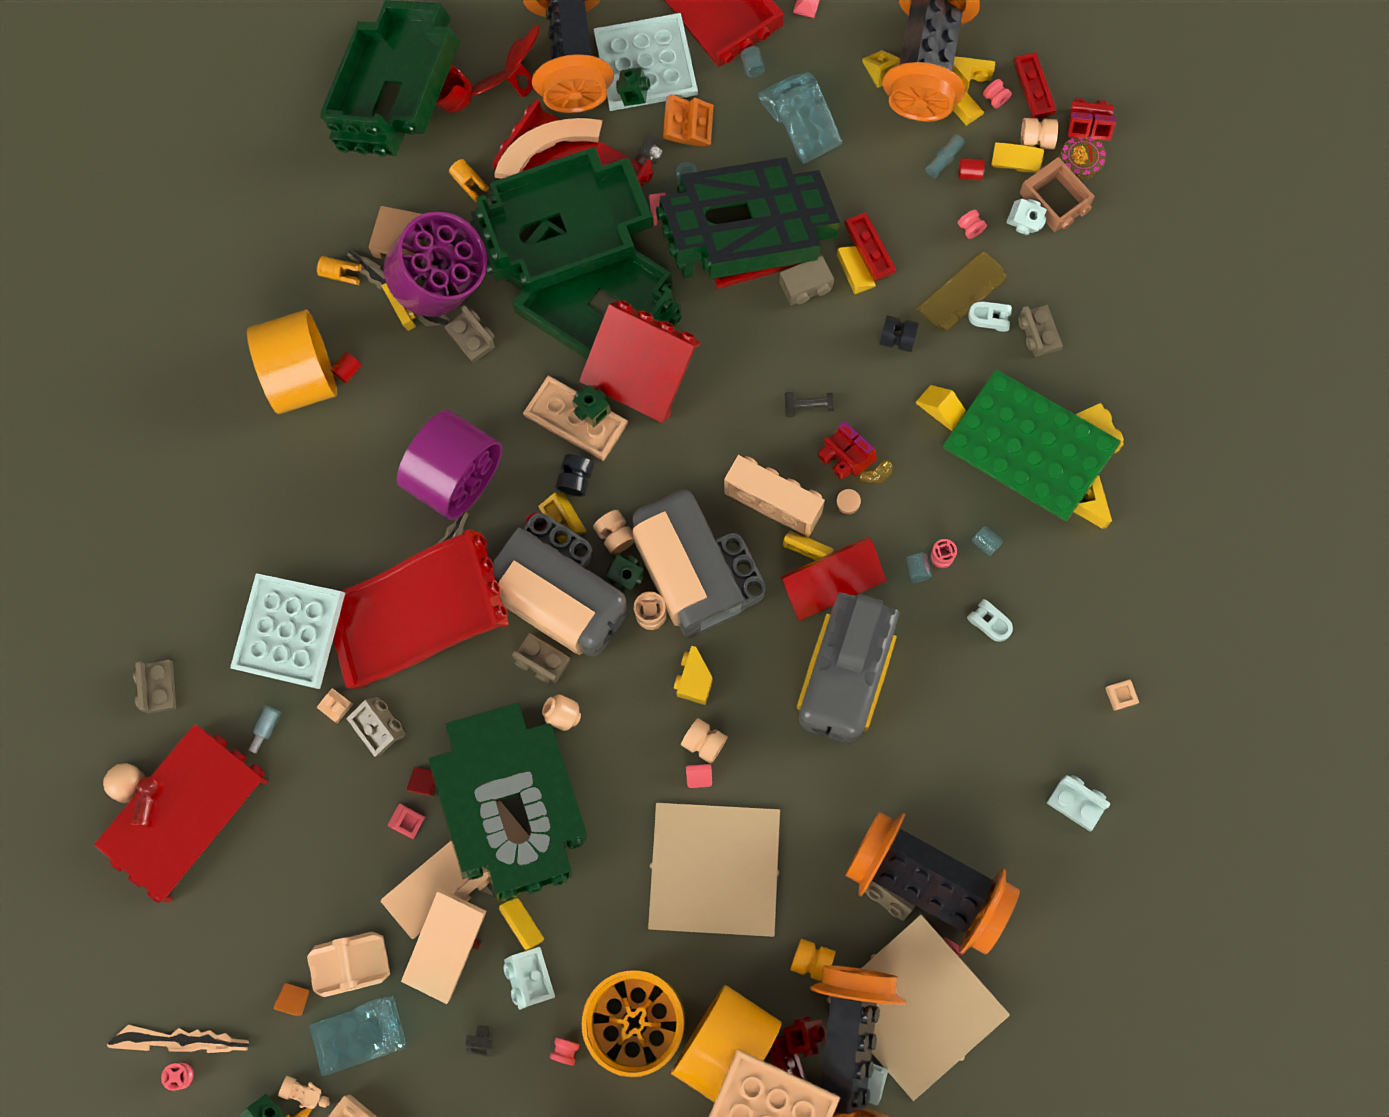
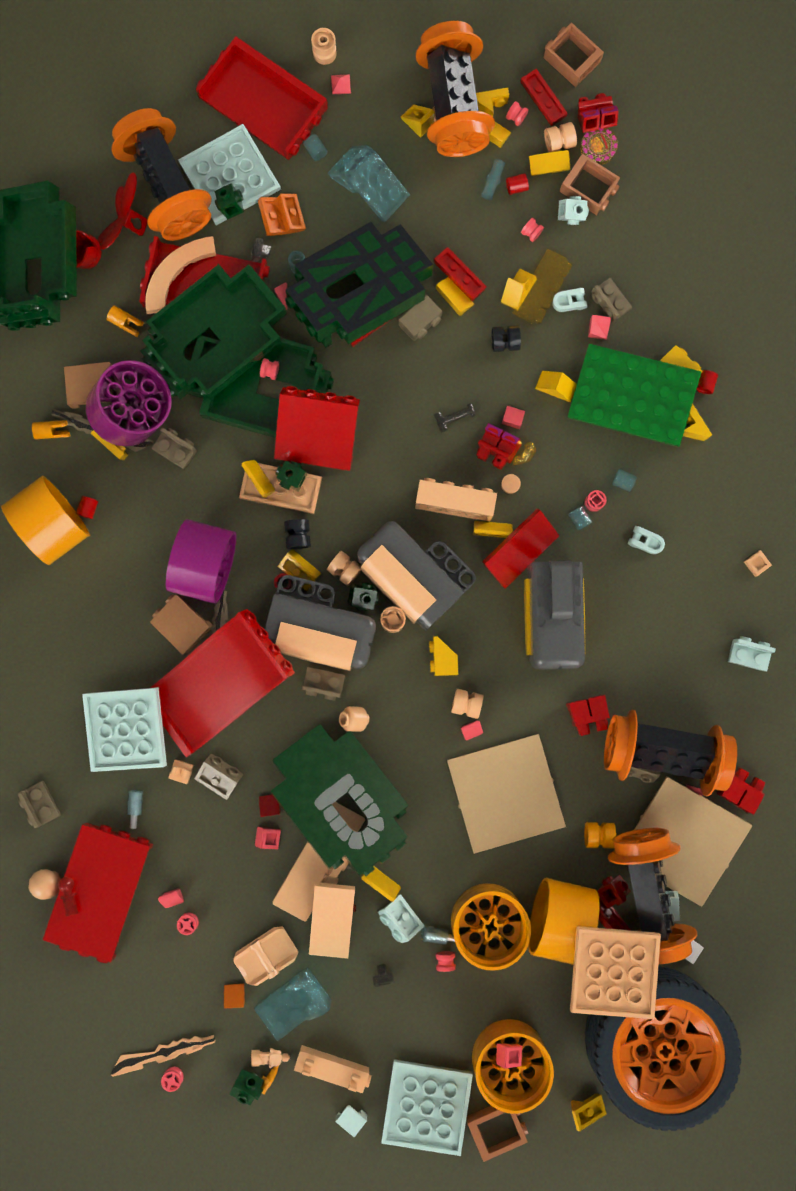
camera: 30 degrees left, 10 degrees up
(263, 852) = (171, 898): none -> coral slope
(266, 887) = (185, 927): none -> coral wheel
(399, 530) = (180, 624): none -> medium nougat panel
(553, 397) = (258, 478): none -> yellow slope
(564, 1014) = (436, 935): none -> clear light blue piece
(611, 281) = (269, 369): none -> coral wheel
(861, 806) = (589, 711): none -> red hips
(877, 426) = (513, 417): none -> coral slope
(932, 284) = (518, 289): none -> yellow slope
(1015, 356) = (599, 327): none -> coral slope
(1021, 979) = (742, 794): none -> red hips
(1108, 54) = (584, 44): none -> nougat window
(1126, 459) = (707, 382): none -> red beam

